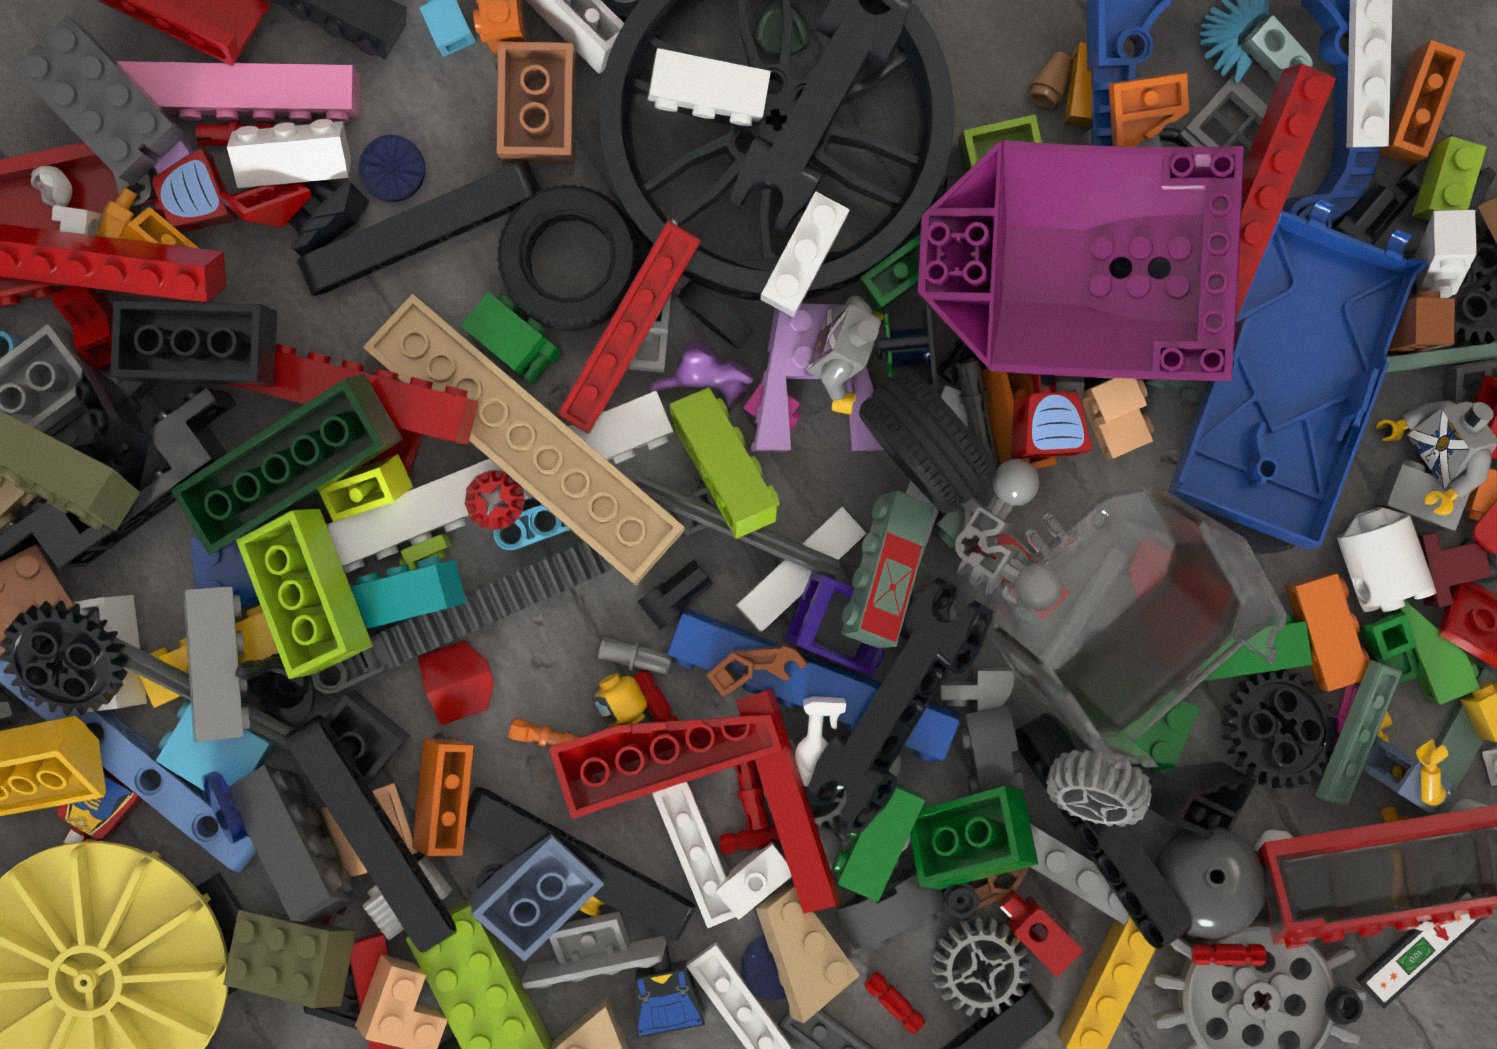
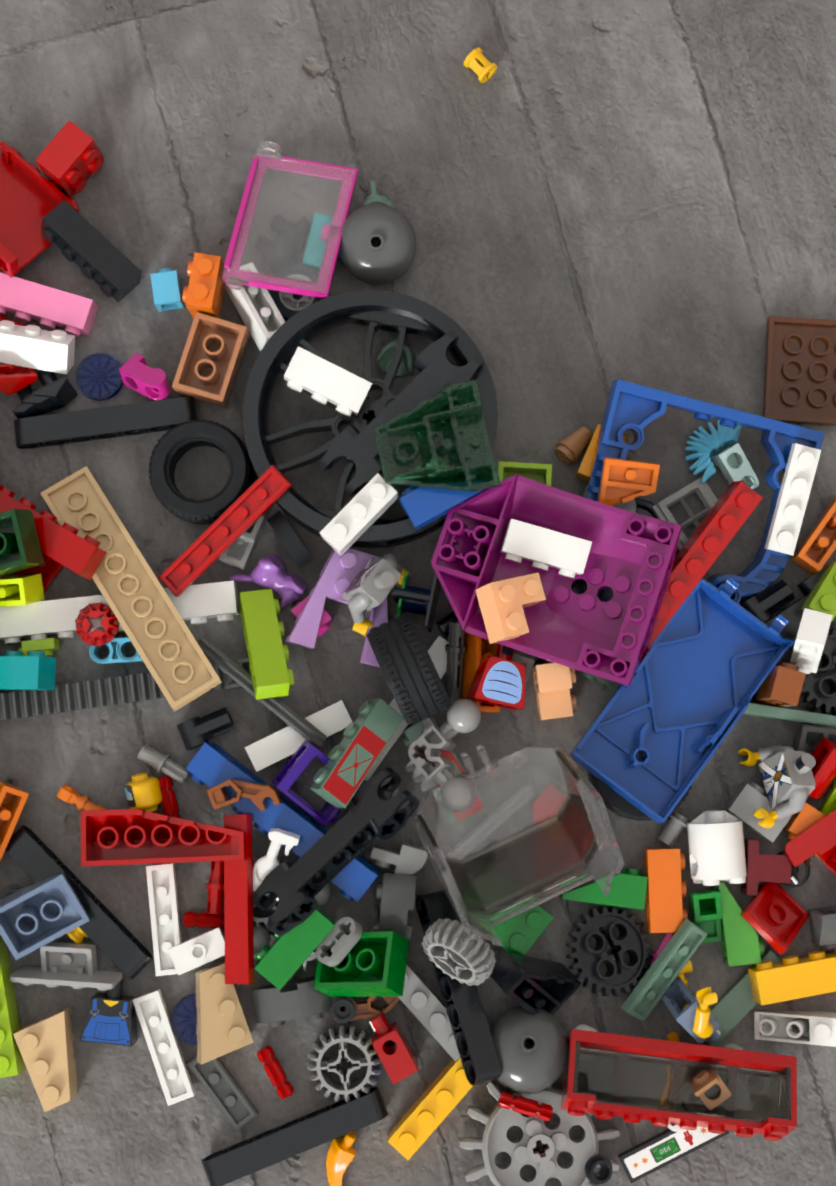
camera: 10 degrees right, 5 degrees down
(455, 154) = (144, 379): none -> dark pink leg
(456, 681) = (32, 746): red slope -> none
(510, 337) = (144, 515): green hinge -> none
(887, 127) = (440, 443): none -> clear green wedge
(893, 275) = (419, 548): green brick -> none
(898, 207) = (428, 504): none -> blue slope
(936, 818) = (339, 941): none -> light grey beam
(1036, 323) = (504, 603): none -> light nougat brick
(1066, 229) = (545, 548): none -> white brick
(1316, 558) = (673, 828): none -> light grey pin
(1454, 859) = (706, 1080): none -> medium nougat bracket

